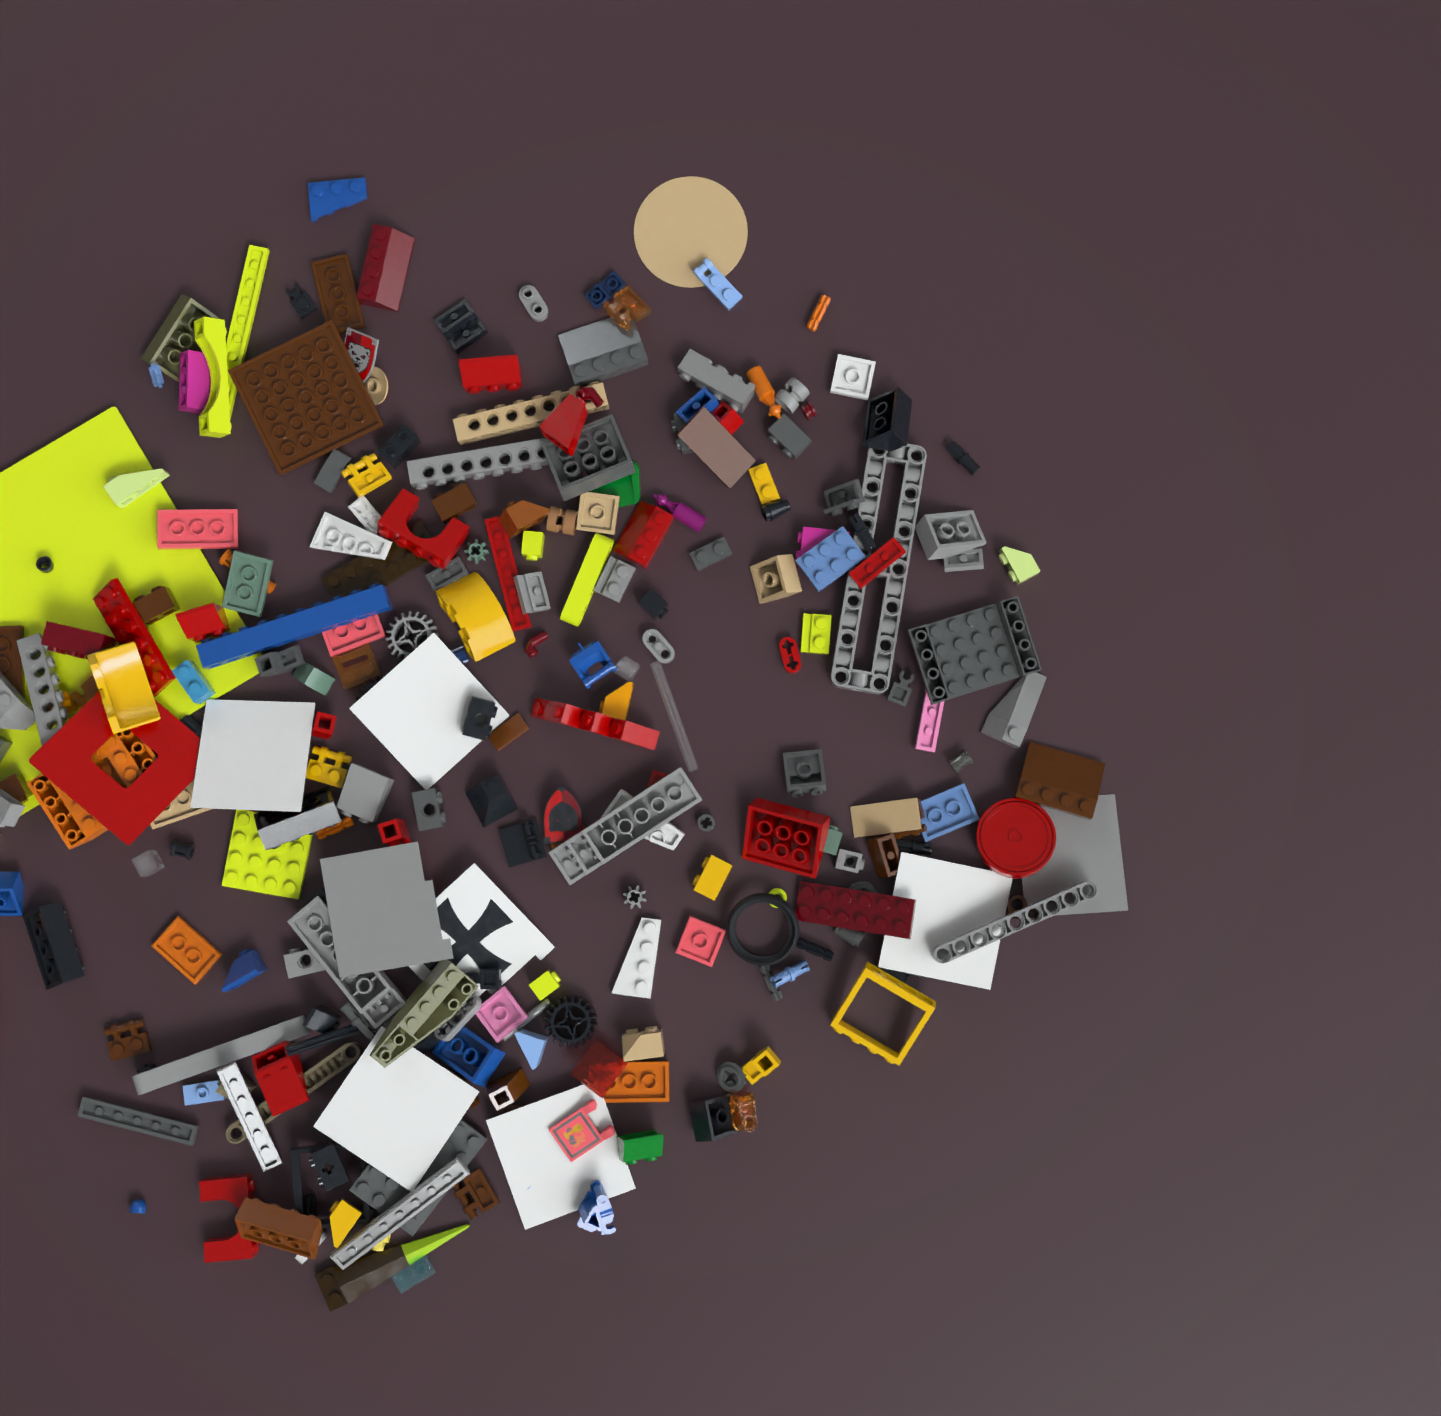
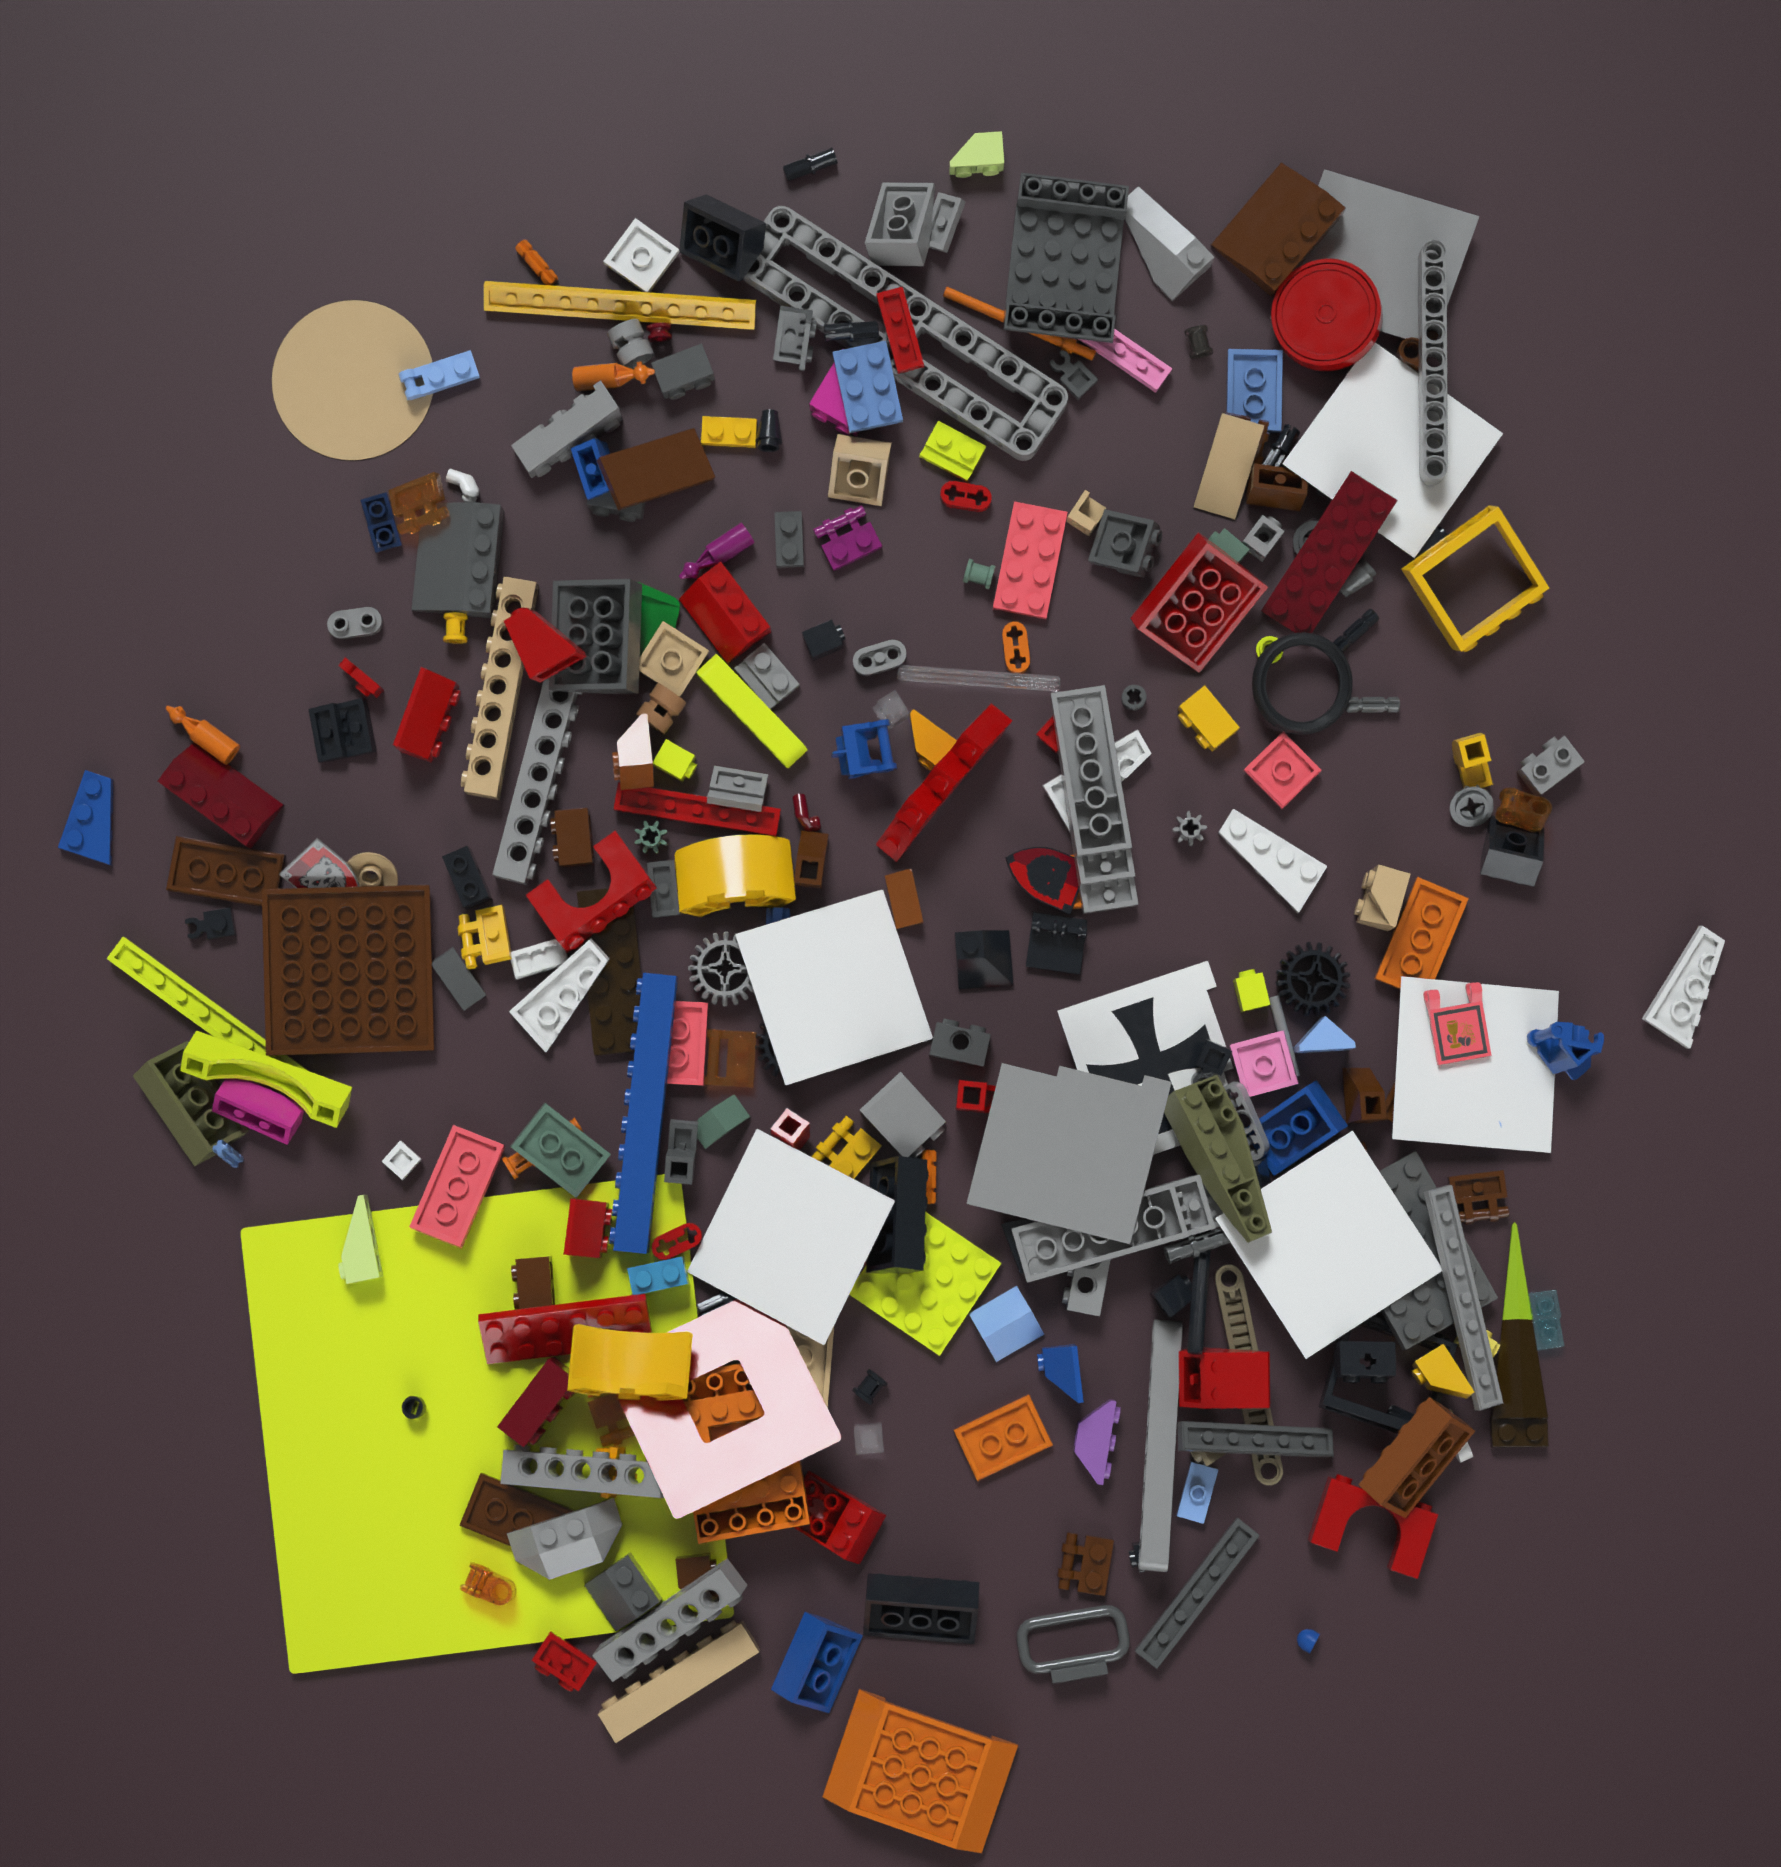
camera: 65 degrees left, 0 degrees up
(57, 1064) = (1078, 1666): none -> dark grey bar
(88, 867) = (839, 1519): none -> red slope
(201, 487) = (401, 1160): none -> white plate
(208, 1011) = (1095, 1439): none -> medium lavender slope
(219, 687) = (674, 1234): none -> red beam
(260, 919) = (1006, 1323): none -> light blue slope
(419, 242) = (206, 735): none -> orange wheel
(476, 706) = (855, 925): black brick -> none
(496, 326) = (365, 683): none -> red plate
(506, 660) = (811, 859): none -> reddish brown slope
(557, 367) = (455, 628): none -> yellow bush
(589, 393) = (513, 599): dark red arm -> none
(599, 1068) = (1389, 967): clear red slope -> none
(640, 1145) = (1509, 957): green slope -> none
(654, 333) = (466, 482): none -> white arm
(669, 1272) = (1681, 997): none -> white wing
(702, 727) = (1022, 647): none -> orange beam
(723, 595) = (852, 545): none -> magenta plate
(727, 417) = (622, 436): red brick -> none
(742, 686) = (979, 574): none -> sand green bush
(766, 715) = (1030, 560): none -> coral plate
(781, 1118) = (1550, 766): none -> light grey brick
(789, 973) = (1373, 675): medium blue pin -> none
(813, 738) = (1086, 514): none -> tan panel
(814, 377) = (619, 305): none -> yellow plate
(919, 622) = (1067, 344): none -> orange bar

